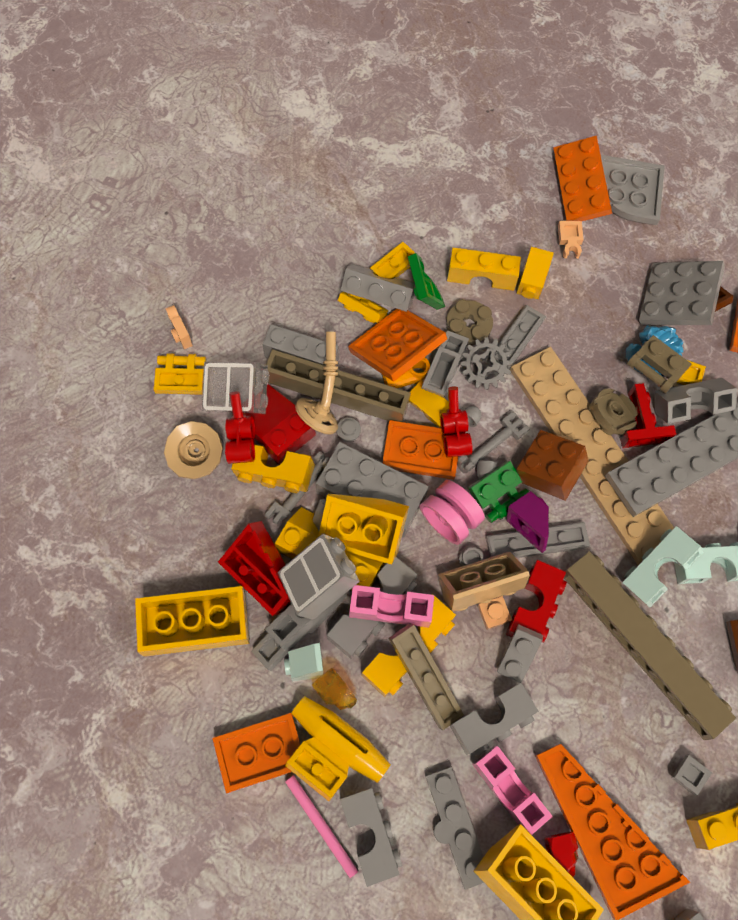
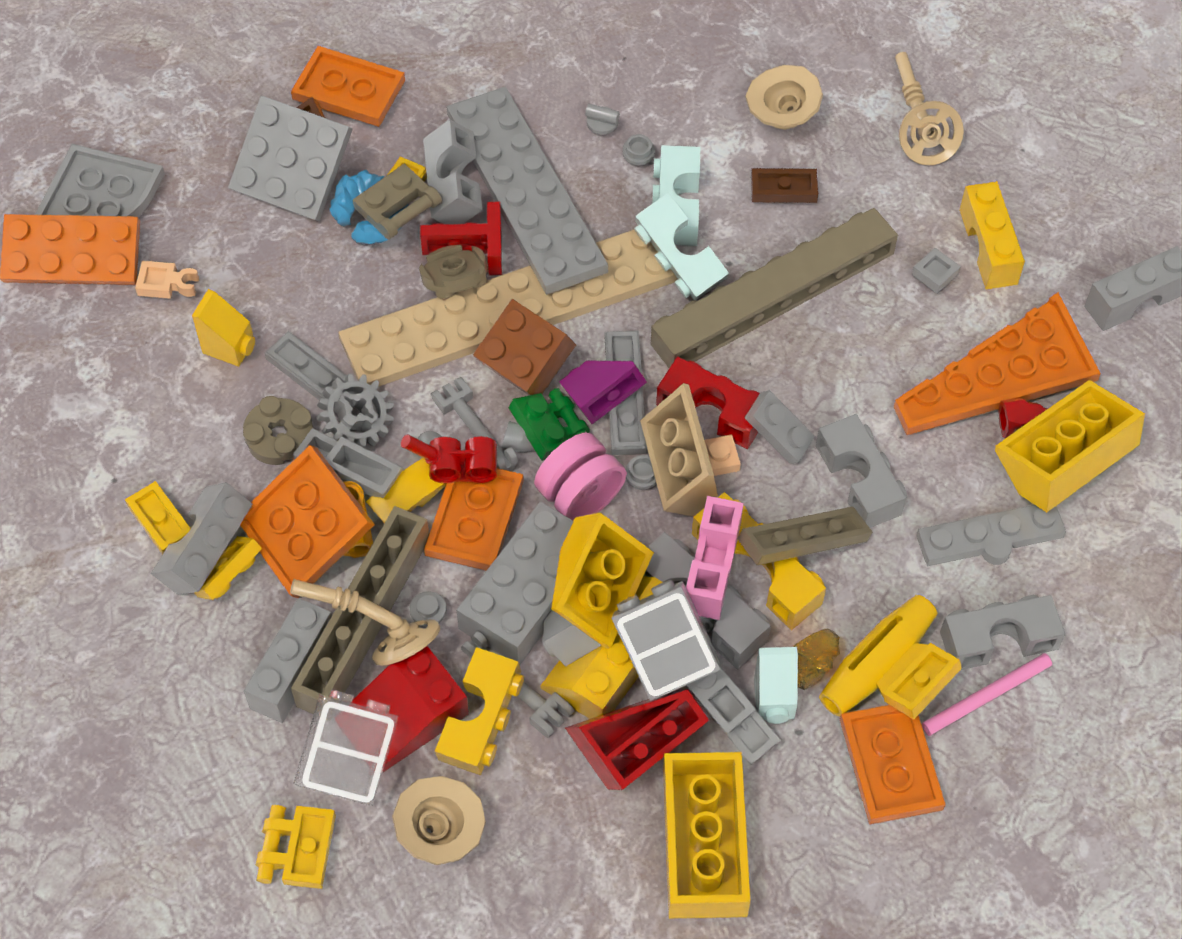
camera: 80 degrees left, 10 degrees down
(179, 332) = (217, 841): light nougat plate -> none
(240, 433) = (425, 744): red beam -> none
(425, 288) = (196, 473): green plate -> none
(499, 268) = (187, 413): yellow arch -> none
(511, 792) = (932, 472): bright pink arch -> none

